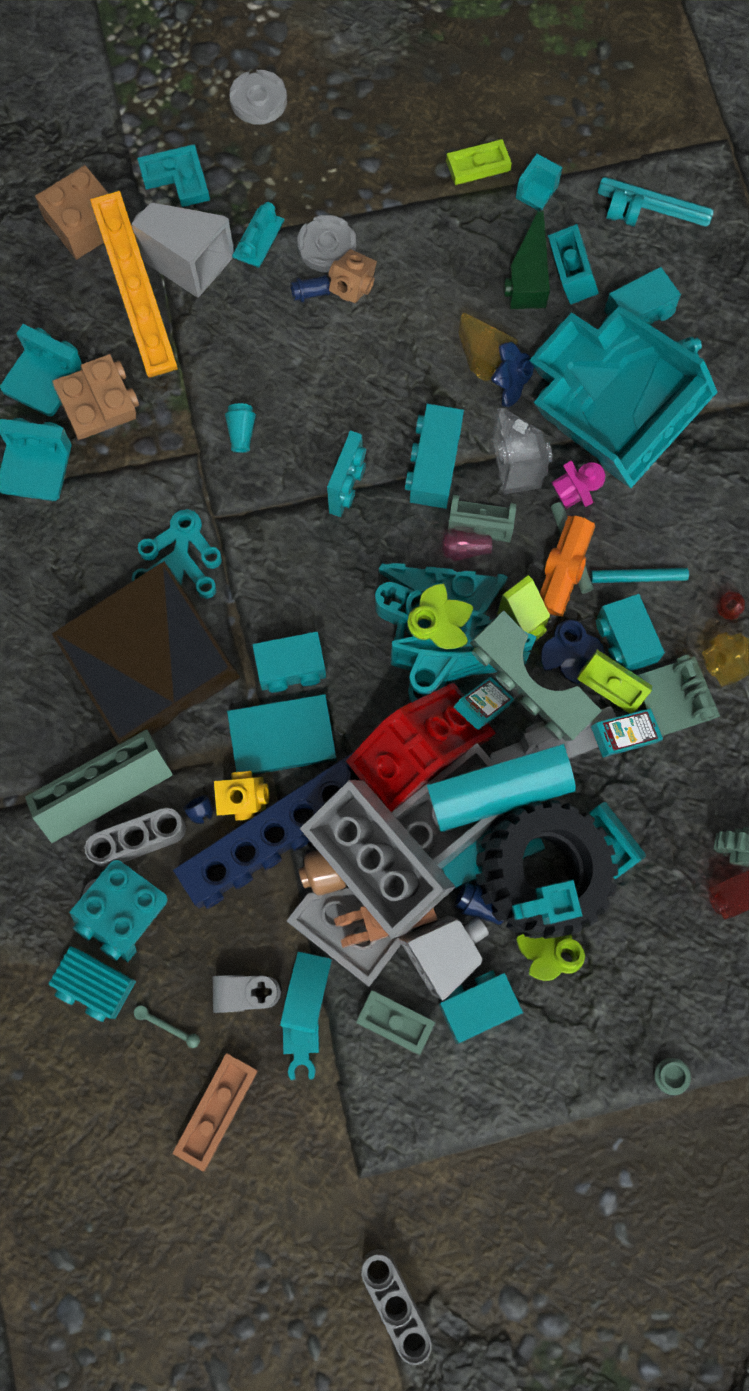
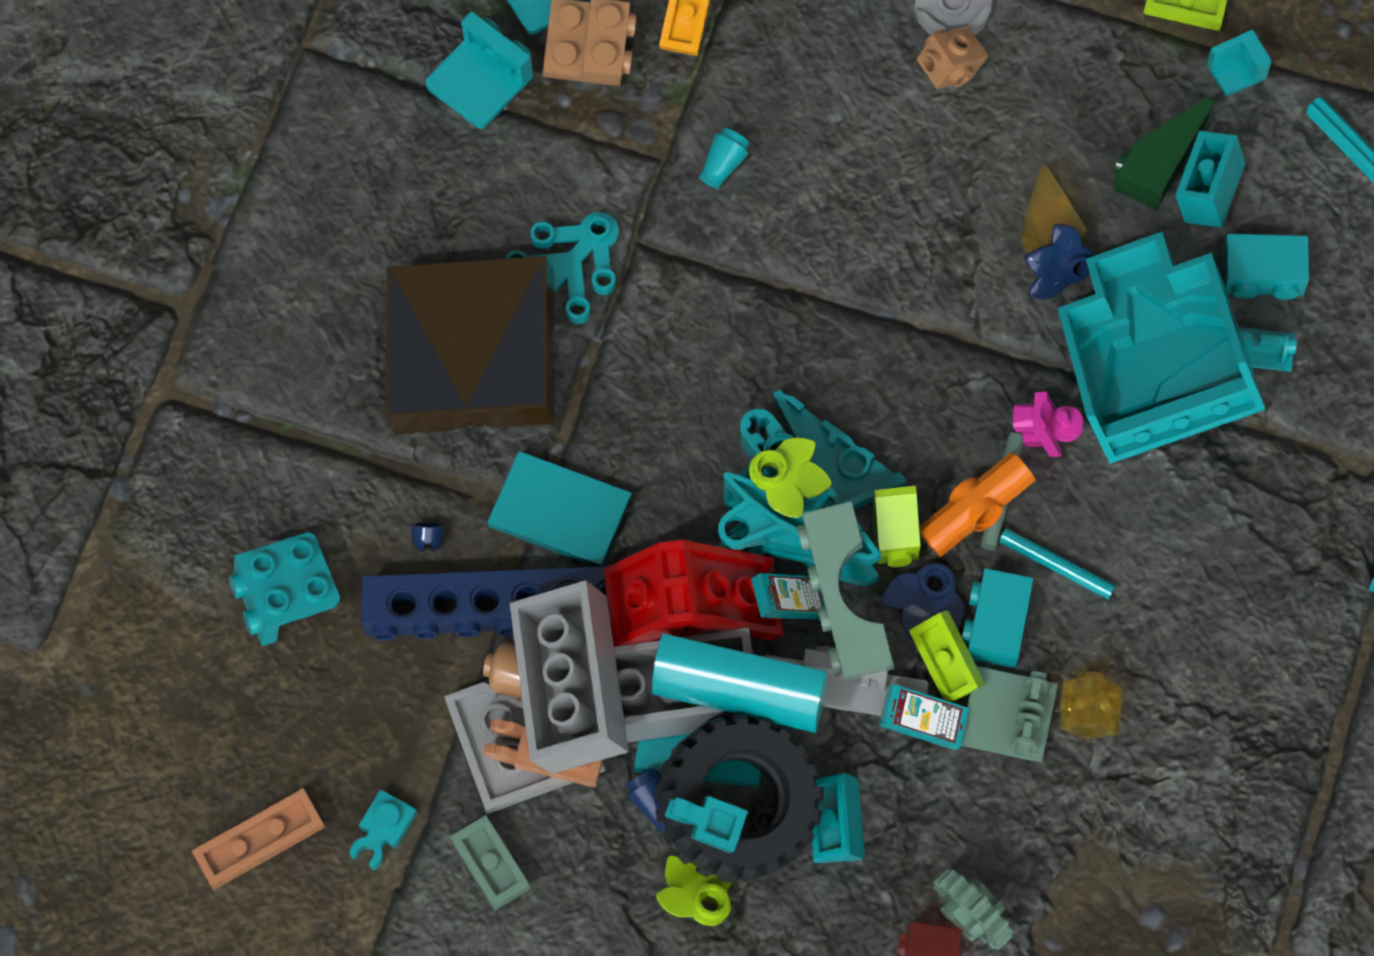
camera: 35 degrees right, 5 degrees down
(92, 984) = (214, 642): teal brick -> none
(98, 786) = (340, 450): sand green brick -> none
(119, 837) = (360, 538): light grey beam -> none
(142, 1013) = (245, 704): sand green hinge -> none
(238, 993) = (352, 740): light grey piece -> none
(241, 795) = (477, 543): yellow brick -> none
(289, 662) = (615, 437): teal brick -> none
(306, 992) = (418, 777): teal slope -> none
(310, 288) = (898, 44): dark blue pin -> none
(347, 470) = (798, 272): teal plate -> none
(434, 455) = (915, 307): teal brick -> none
(445, 952) = (584, 821): light grey torso -> none
(465, 545) = (884, 421): clear pink cone -> none
(480, 1007) = (584, 898): teal brick -> none
(482, 519) = (920, 404): sand green hinge -> none
(519, 453) = (1003, 358): clear slope -> none
(619, 204) = (1320, 146): teal wheel -> none
(737, 609) = (1141, 661): clear red hinge -> none

